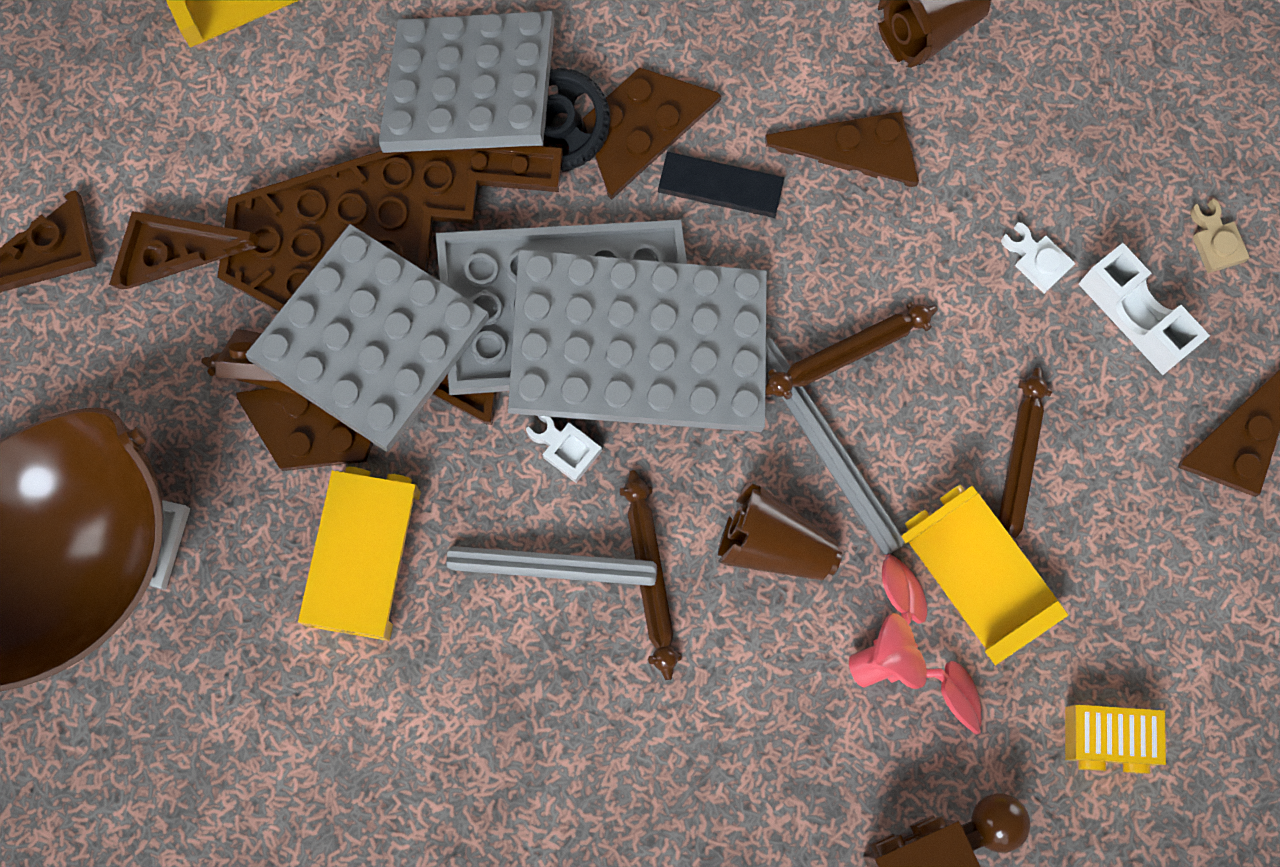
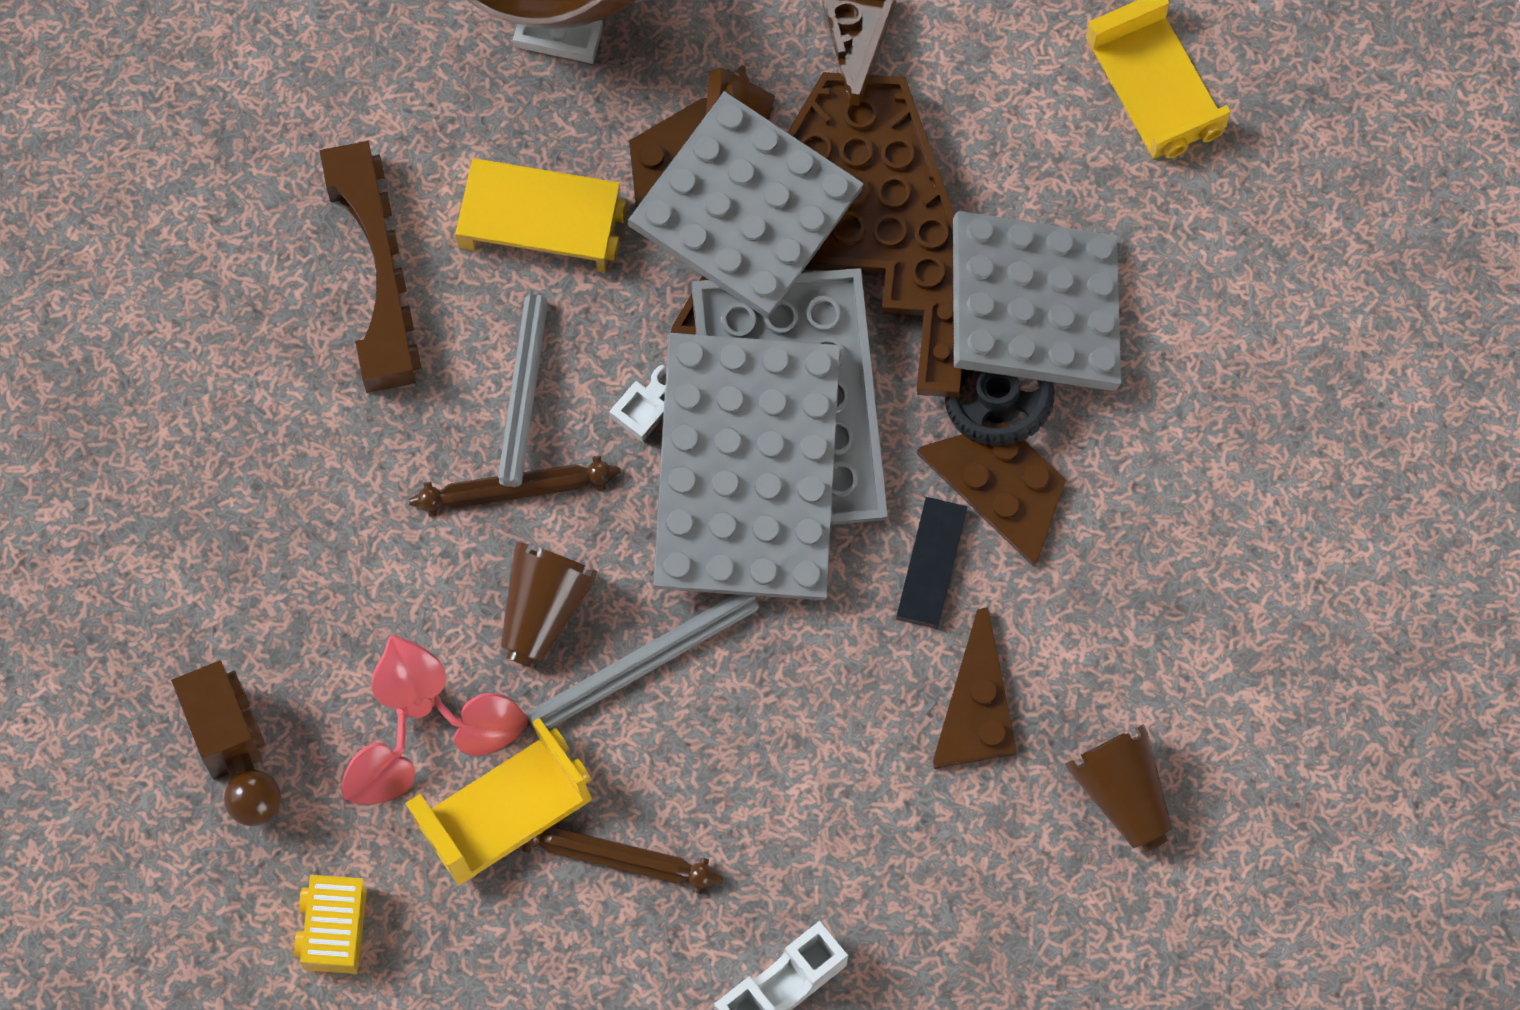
camera: 90 degrees right, 5 degrees down
(311, 751) = (384, 352): none -> reddish brown arch
(849, 350) = (742, 683): reddish brown wheel -> none
(1041, 261) = (844, 893): white plate -> none

